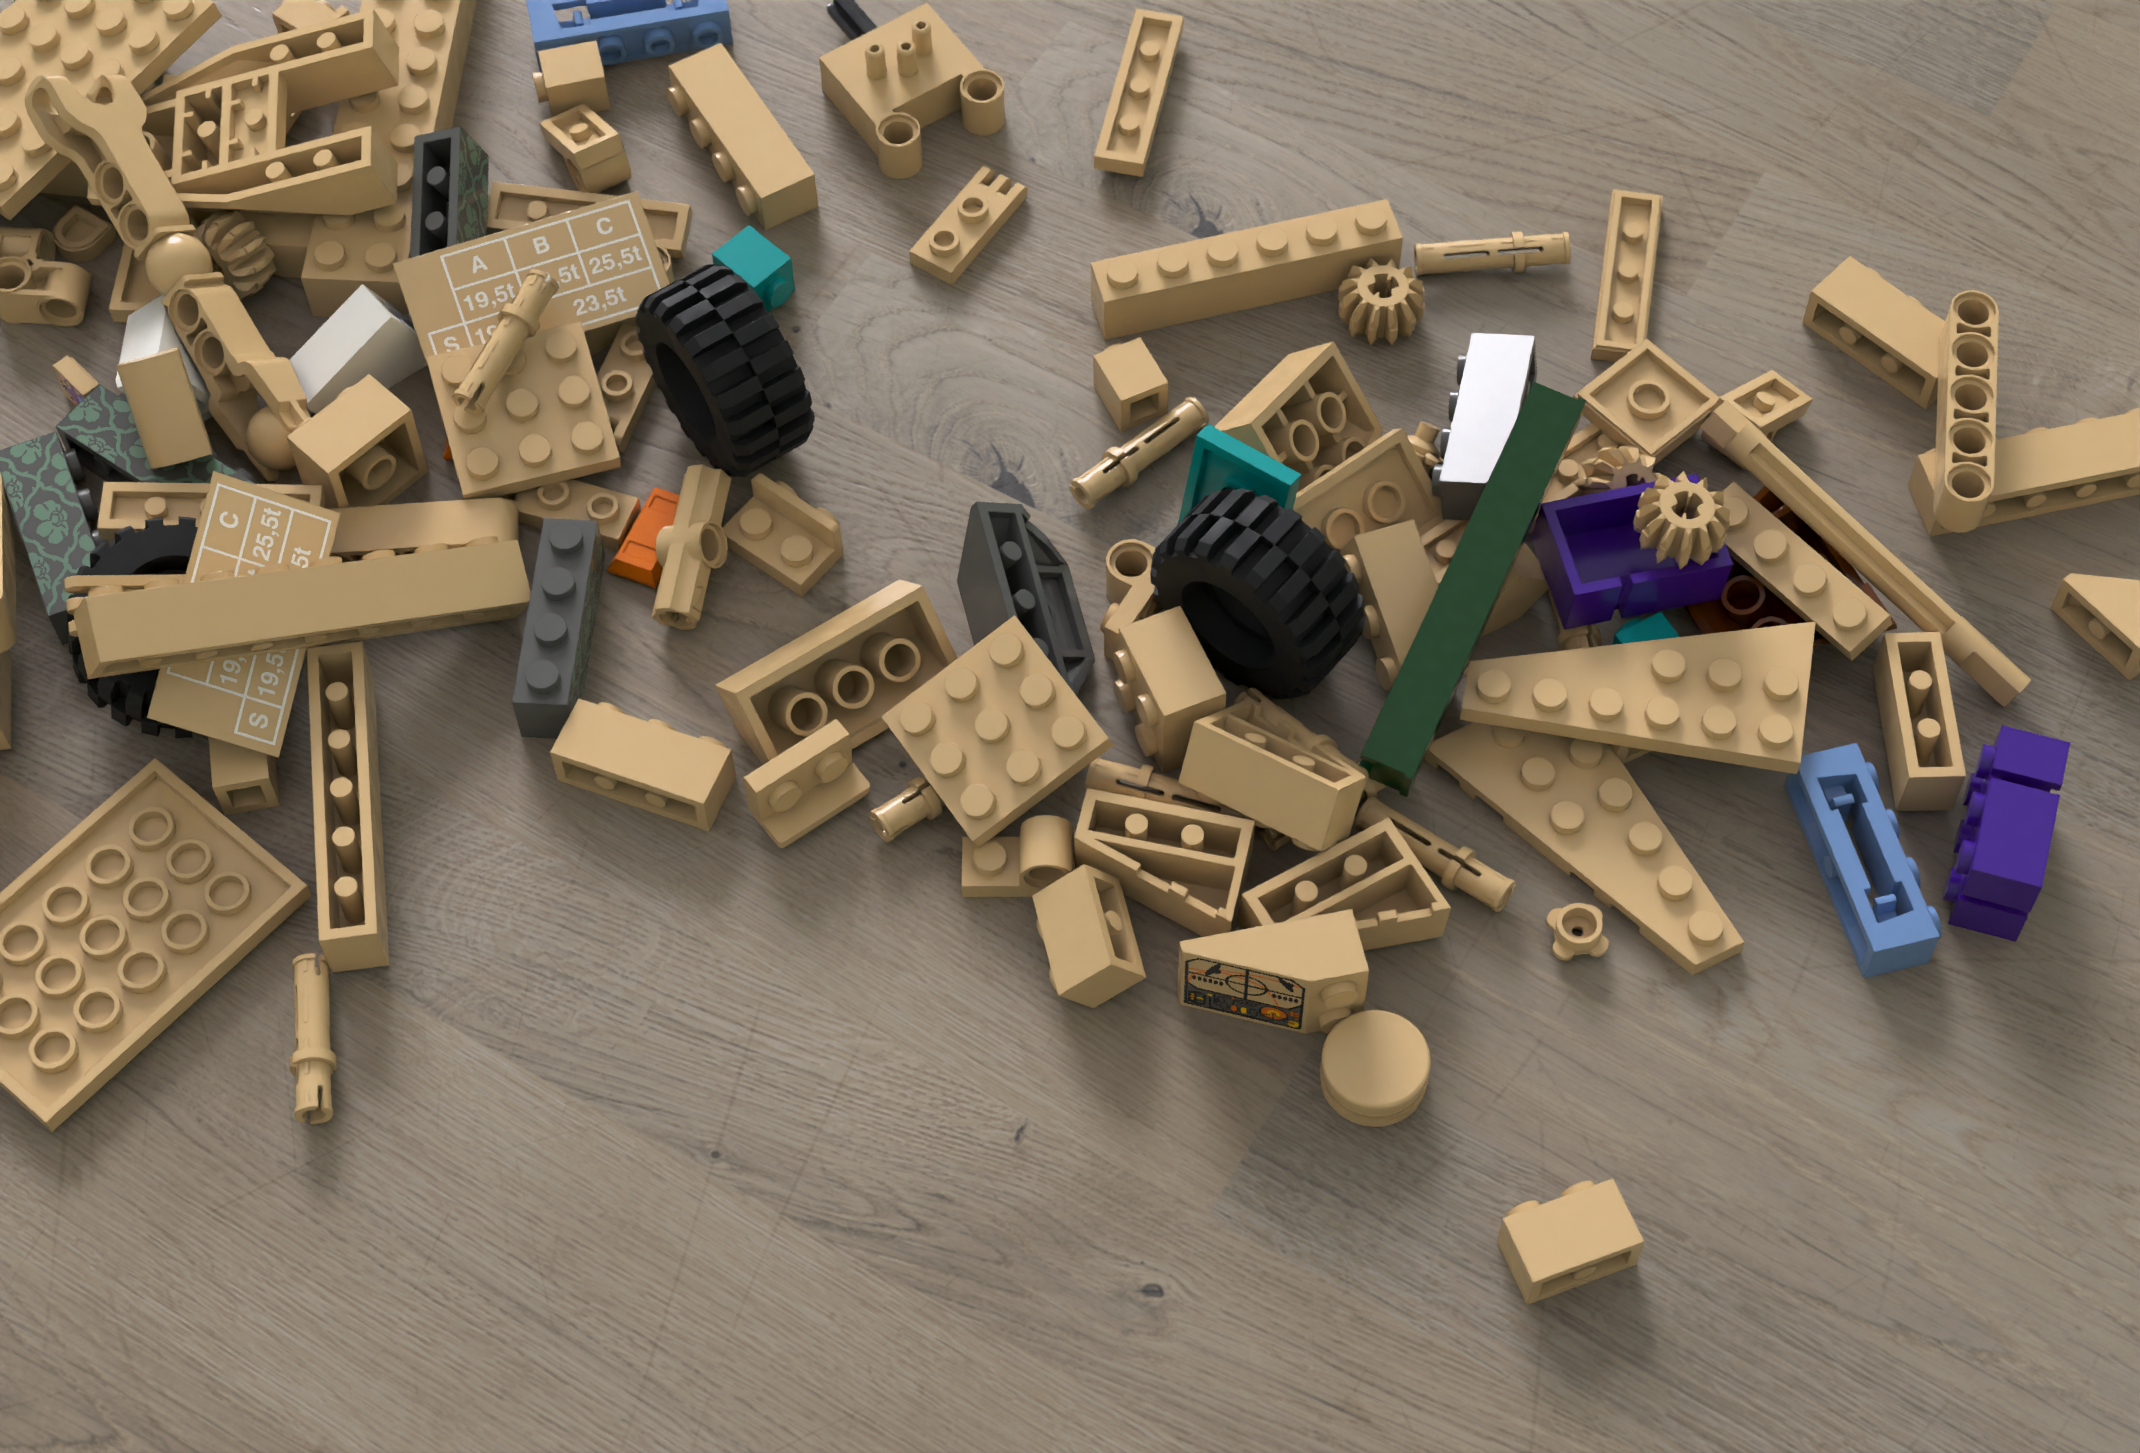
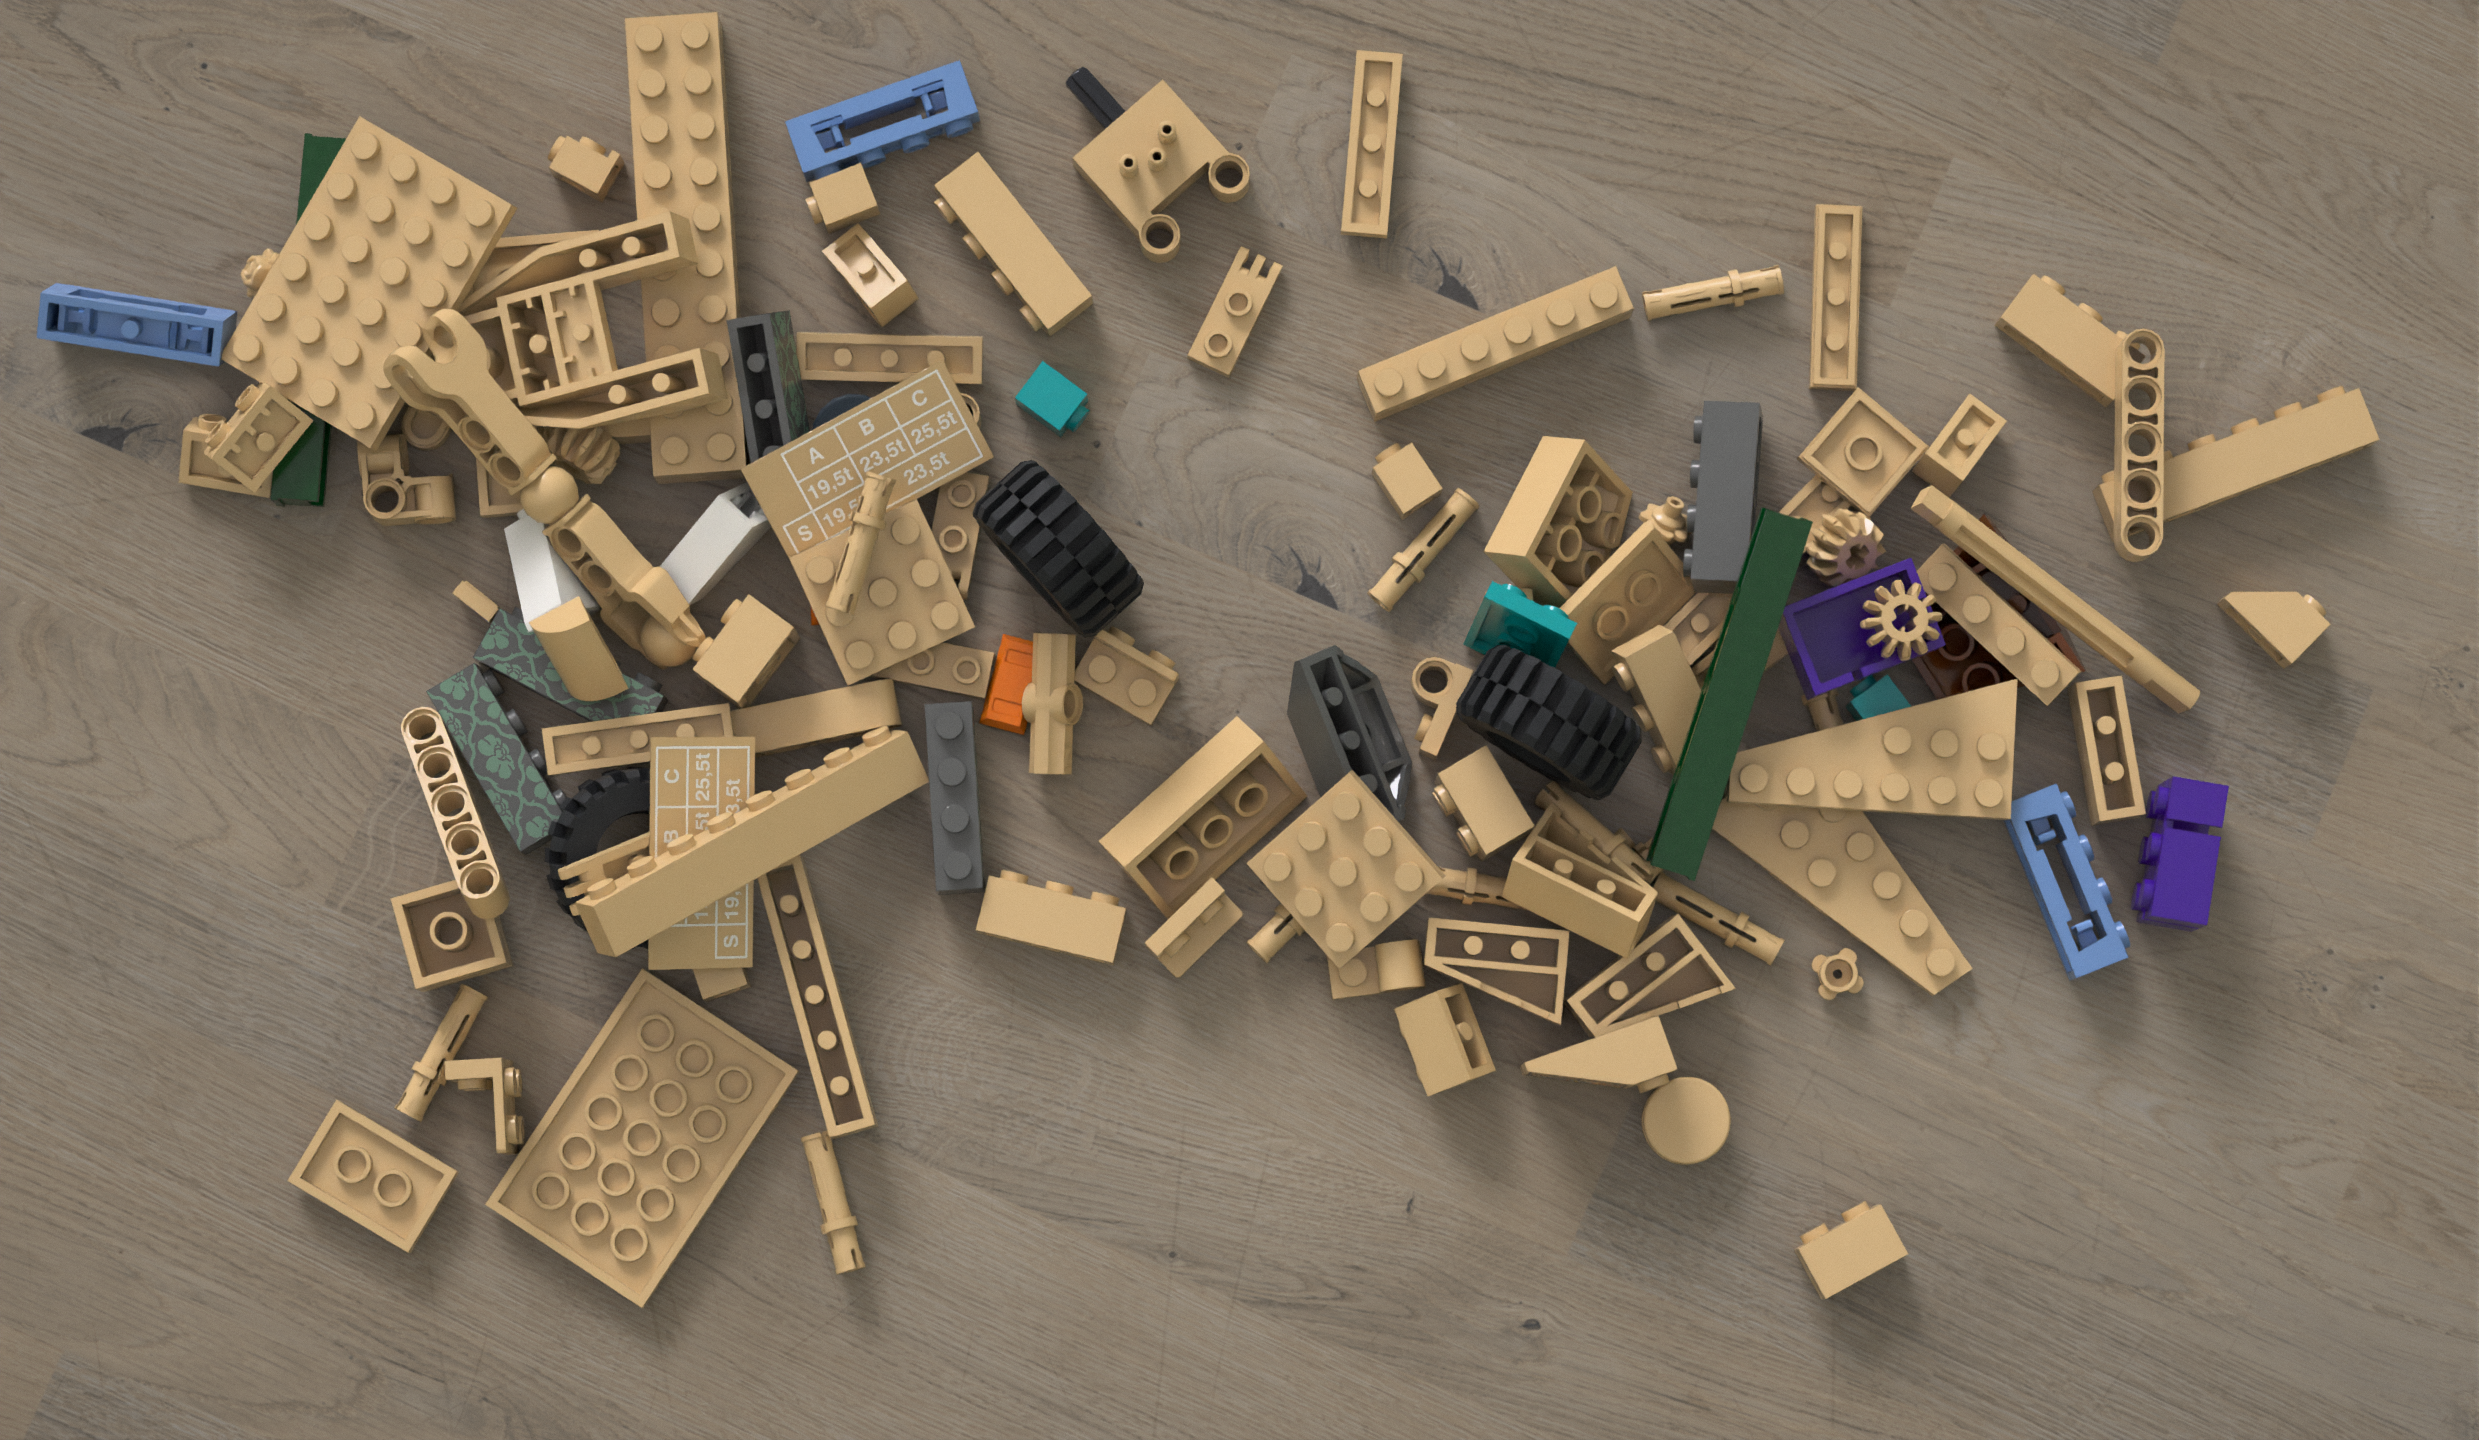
camera: 10 degrees left, 25 degrees up
(1381, 301) = (1634, 370): tan gear -> none

